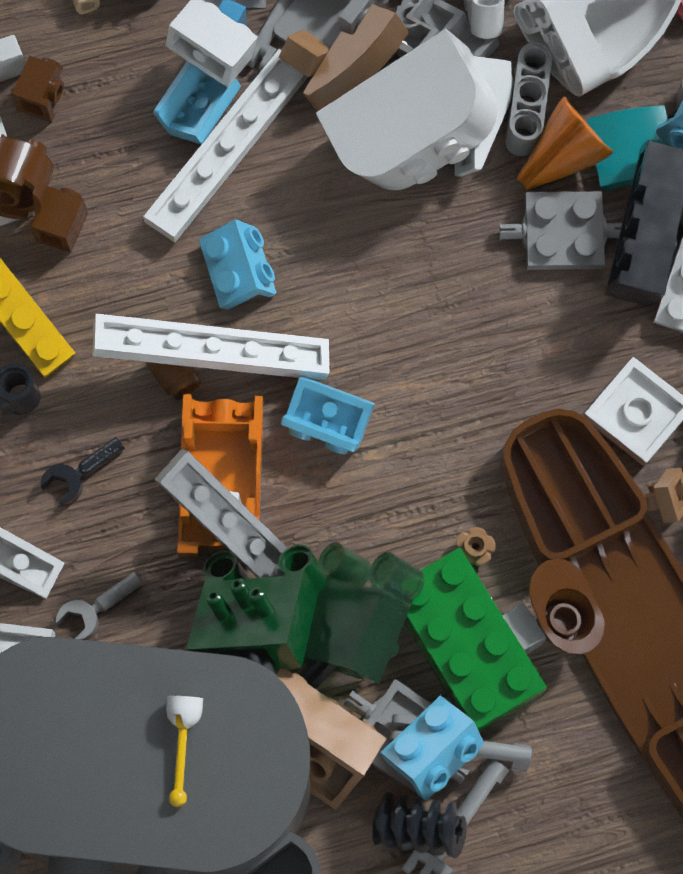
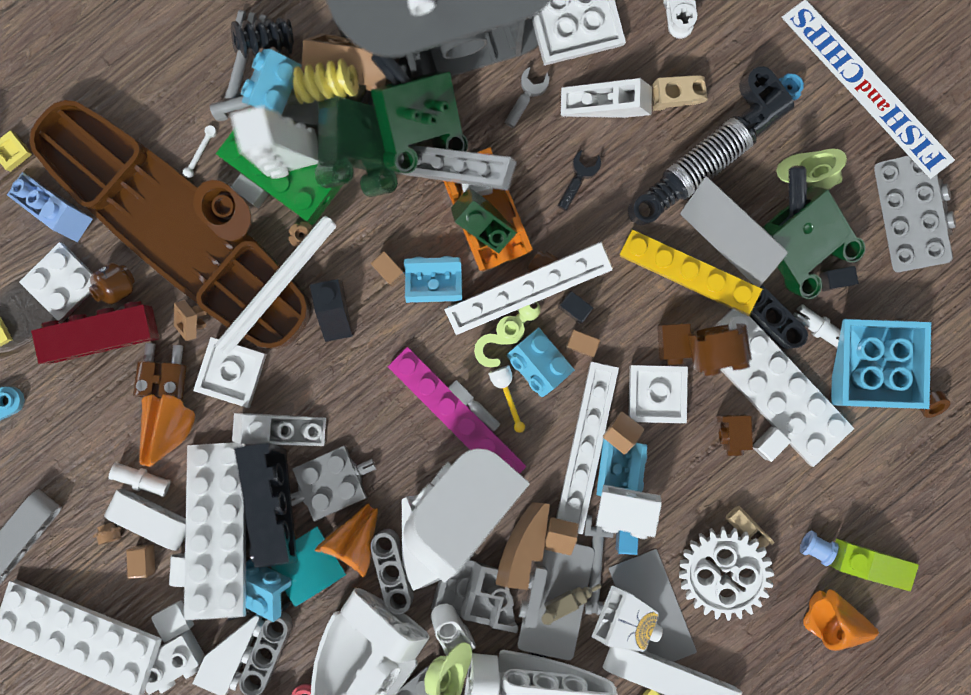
camera: 155 degrees right, 15 degrees up
(111, 169) = (658, 394): none -> white plate
(161, 305) = (575, 307): none -> black piece
(174, 136) = (623, 433): none -> medium nougat piece
(174, 263) = (583, 343): none -> medium nougat piece
(231, 449) = (482, 220): none -> dark green slope
(262, 314) = (508, 330): none -> yellowish green piece
(294, 265) = (502, 378): none -> hinge
(350, 259) = (465, 397): none -> light grey piece
(358, 700) = (324, 83): none -> light yellow piece
(373, 252) = (450, 408): none -> dark pink plate
(380, 453) = (388, 269): none -> medium nougat piece
(454, 626) = (274, 141): none -> white wedge
(474, 436) = (331, 309): none -> black slope
(532, 481) = (275, 285): none -> white axle
(545, 740) = (210, 132): none -> white hinge
(608, 317) = (278, 429): none -> white slope

